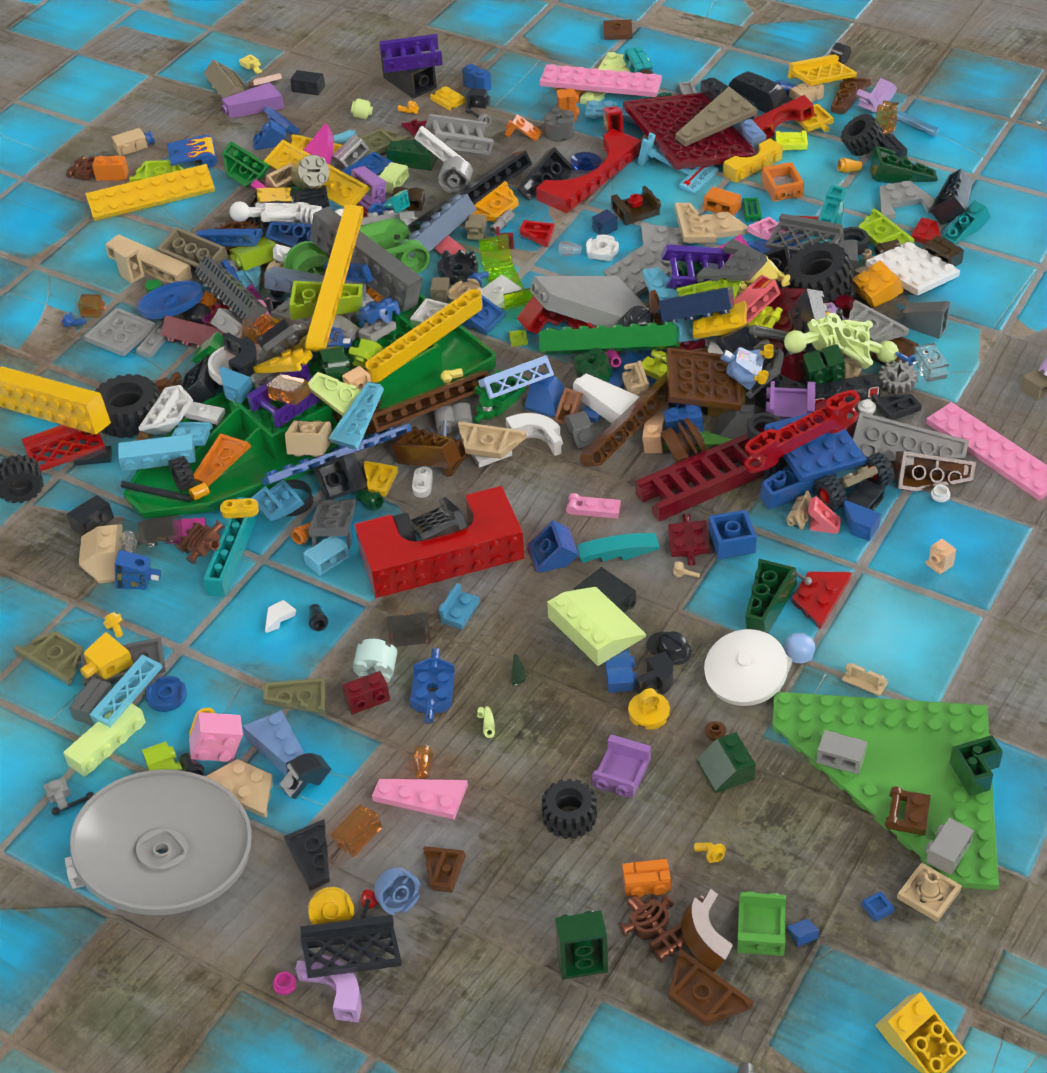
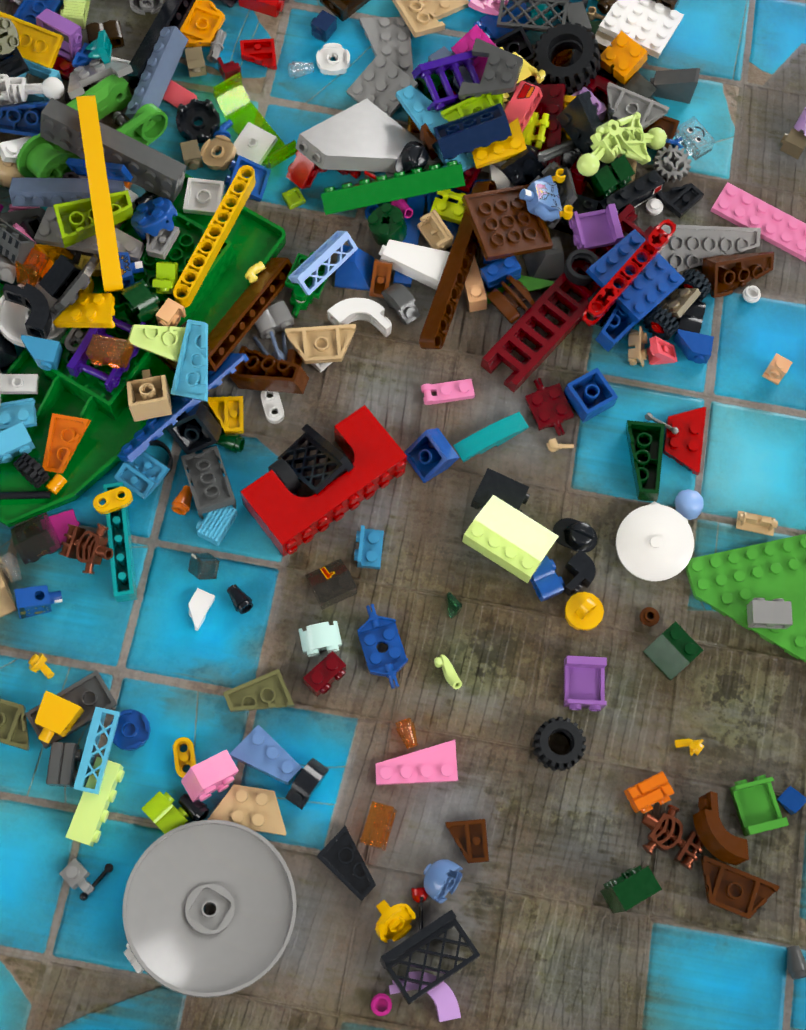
camera: 30 degrees left, 25 degrees up
(297, 584) = (203, 566): none -> clear smoke panel

